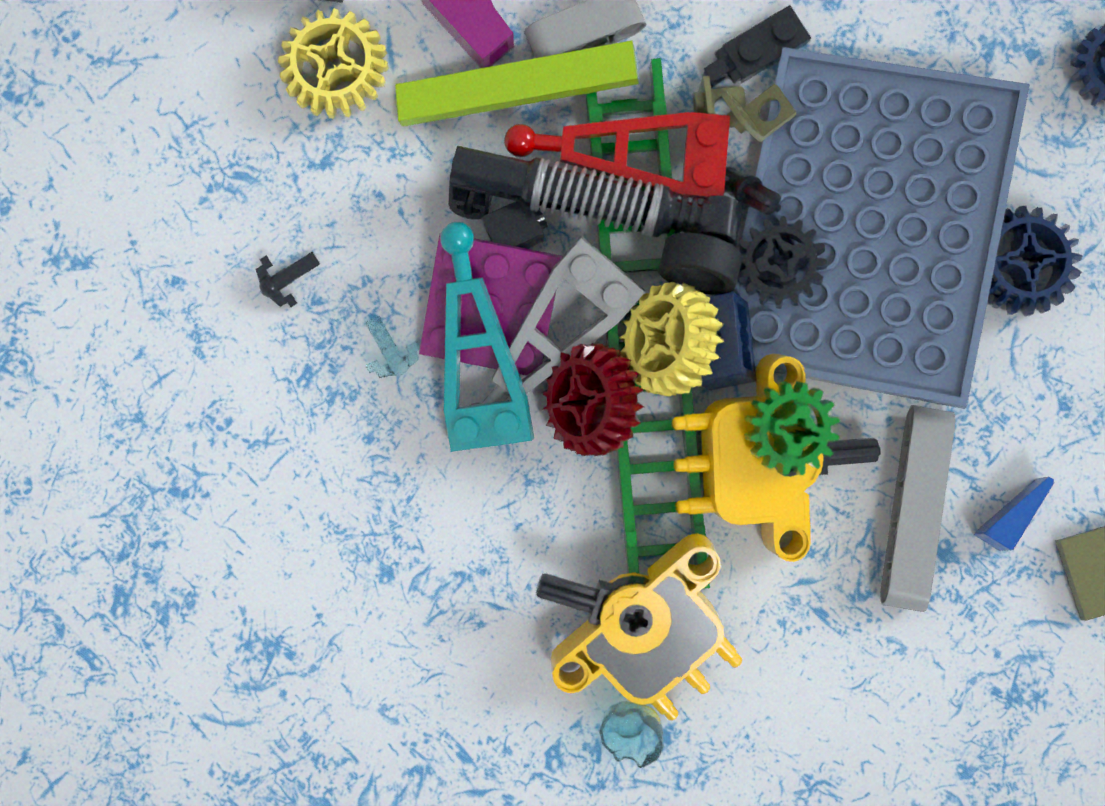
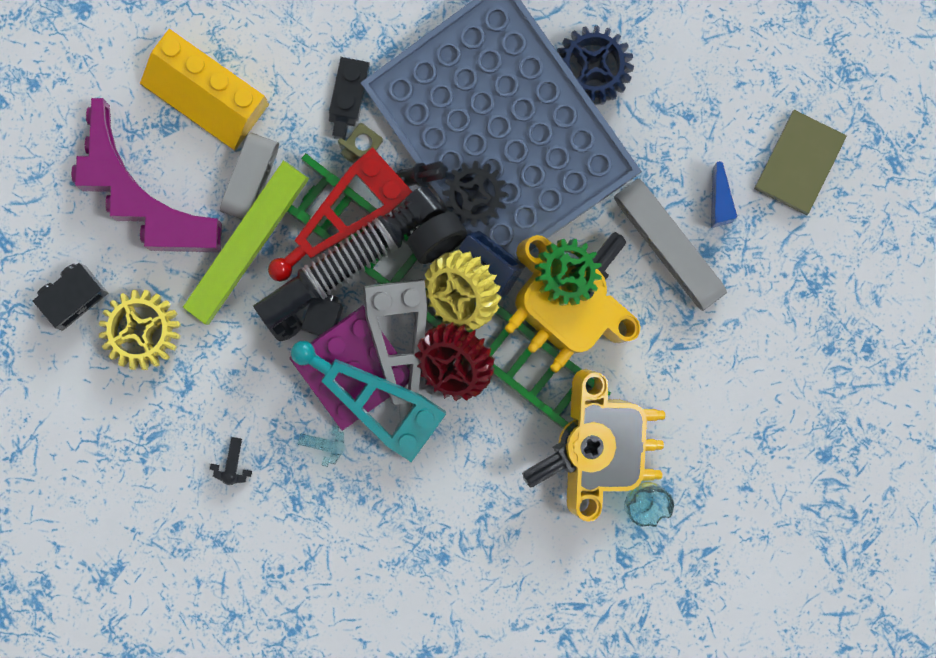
camera: 45 degrees left, 0 degrees up
(749, 116) = (381, 137): olive bracket -> none

